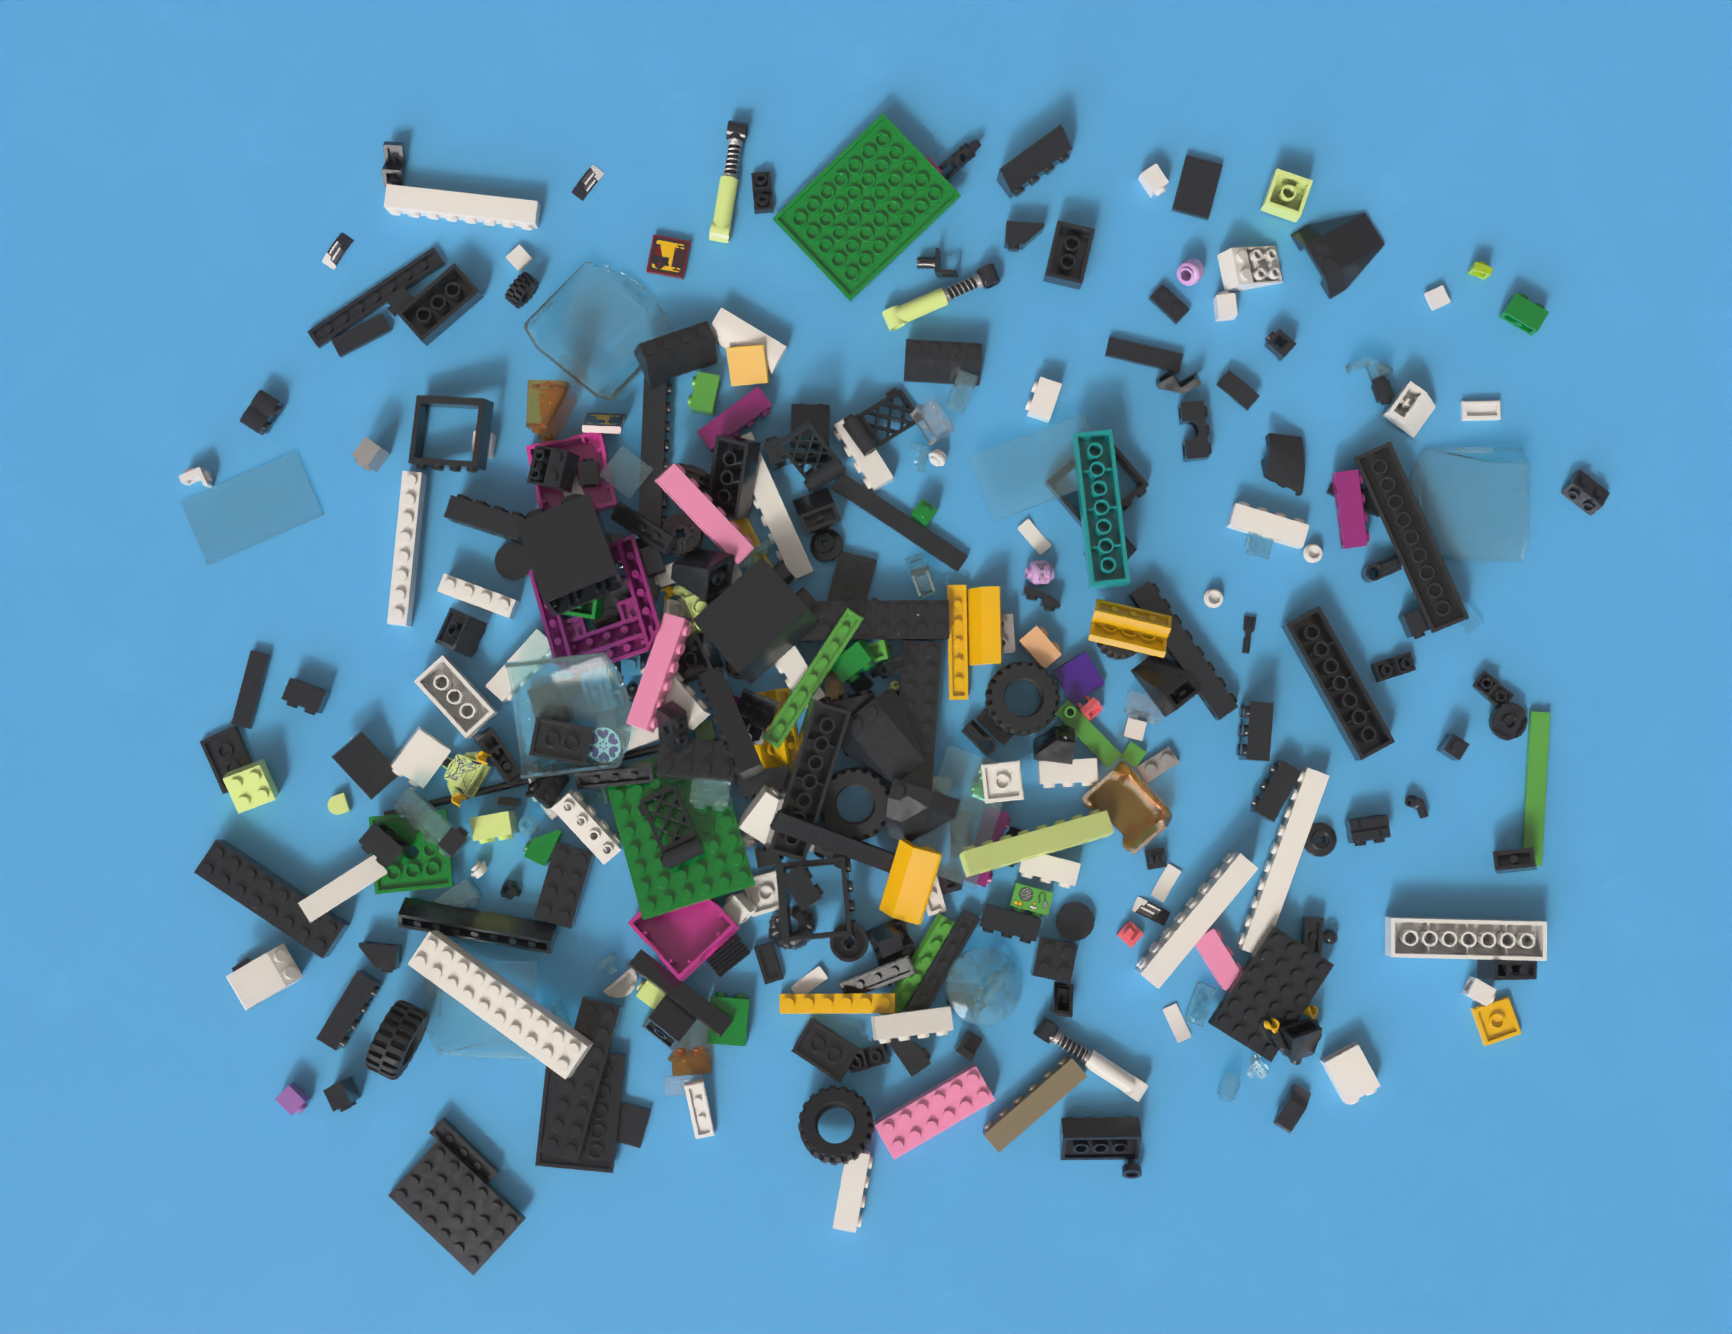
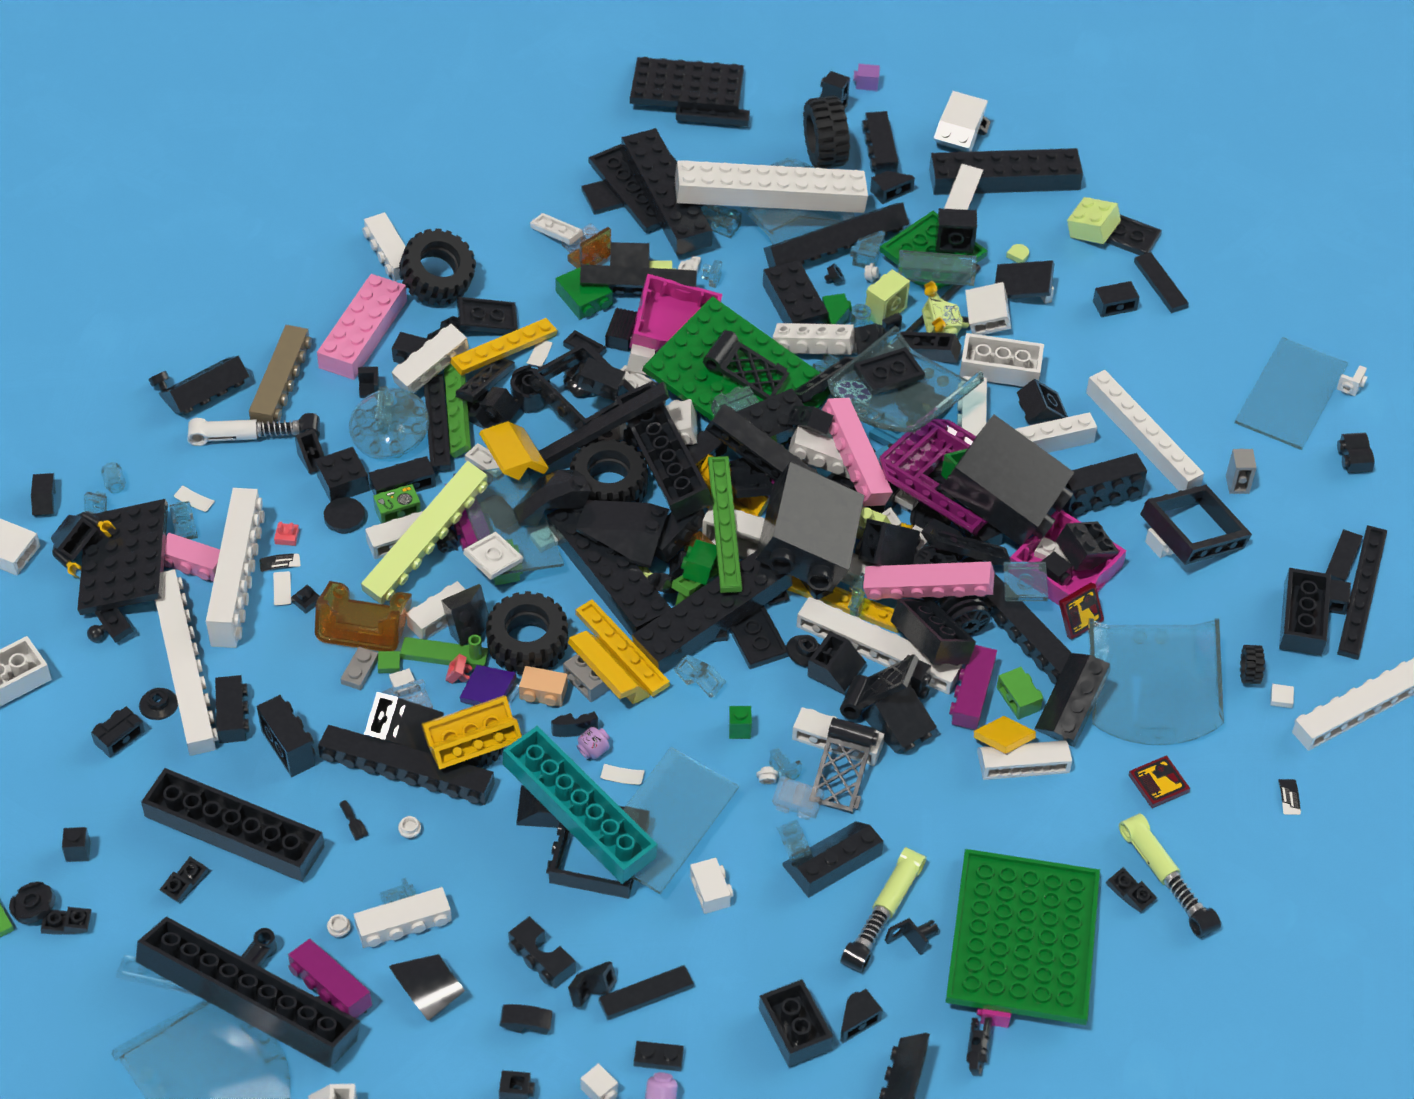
camera: 145 degrees right, 35 degrees down
(454, 840) = (905, 255): black brick -> none
(549, 407) = (1131, 572): clear orange windscreen -> none
(899, 522) = (761, 706): black tile -> none
(978, 736) = (531, 583): black piece -> none
(1414, 624) = (192, 920): black brick -> none
(1417, 803) = (86, 782): black arm -> none

